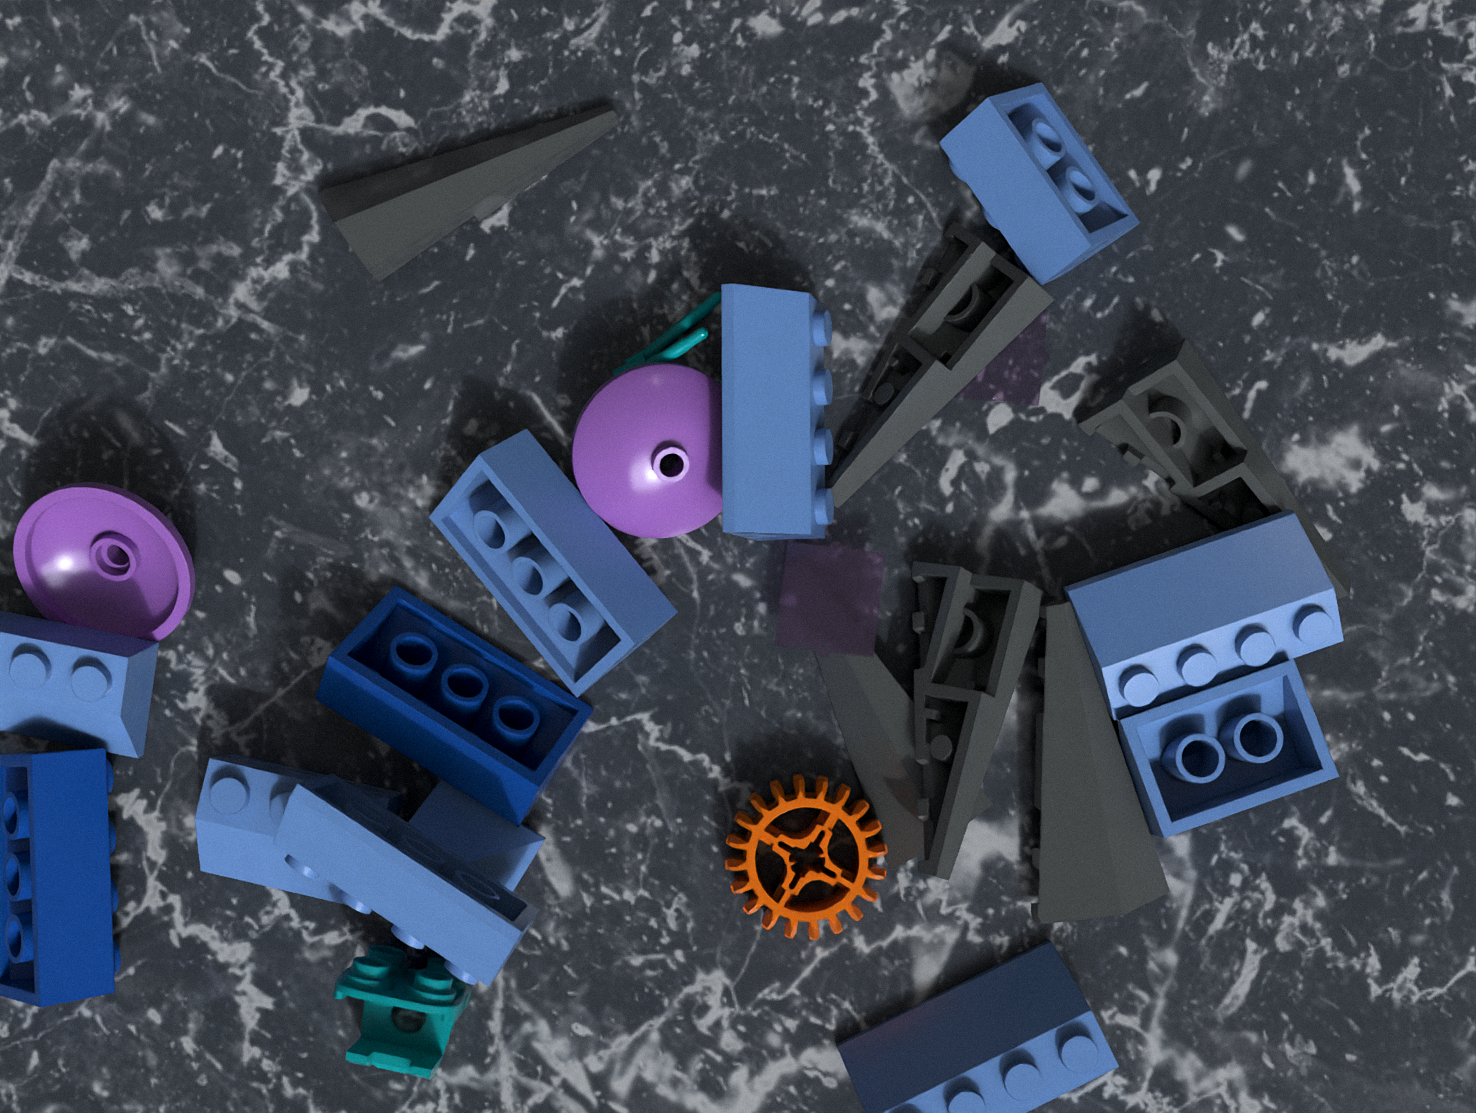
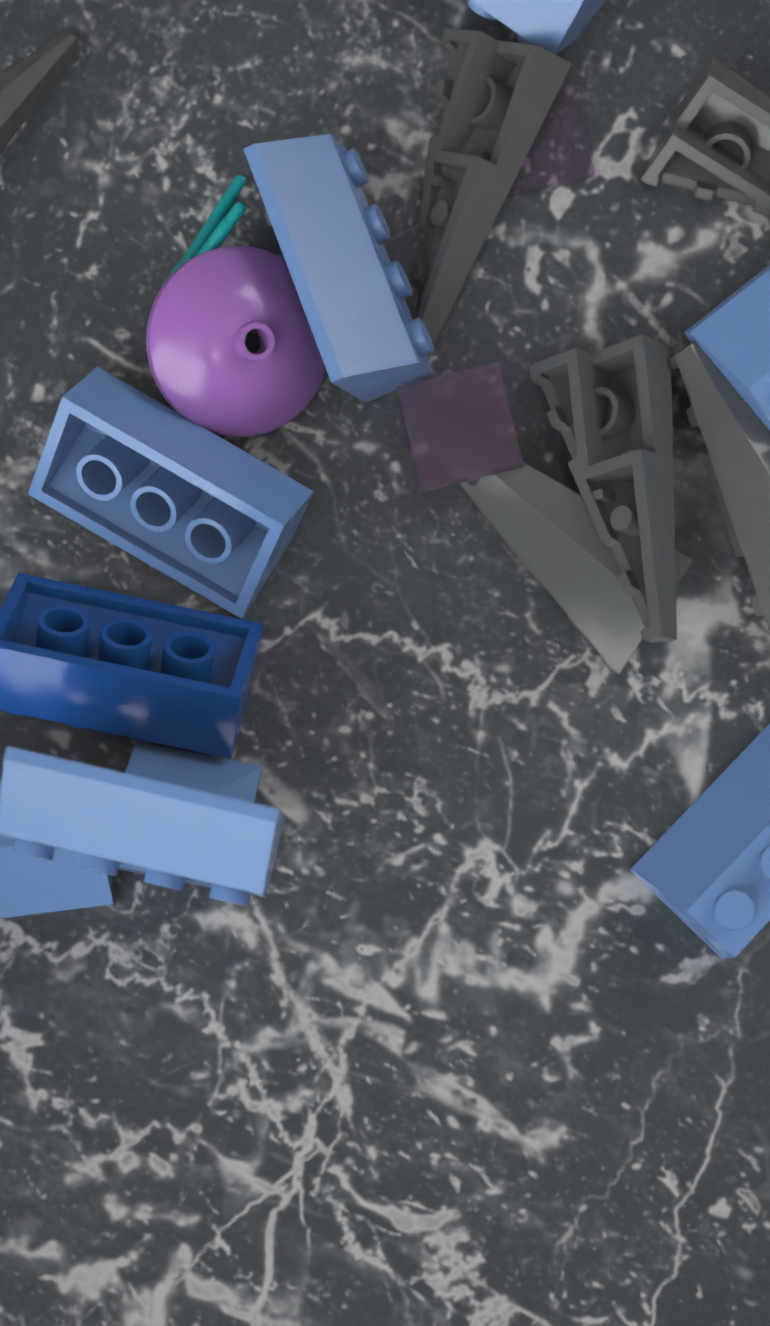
camera: 25 degrees left, 5 degrees down
(388, 982) = (209, 951): teal piece -> none
(790, 884) = (556, 693): orange gear -> none

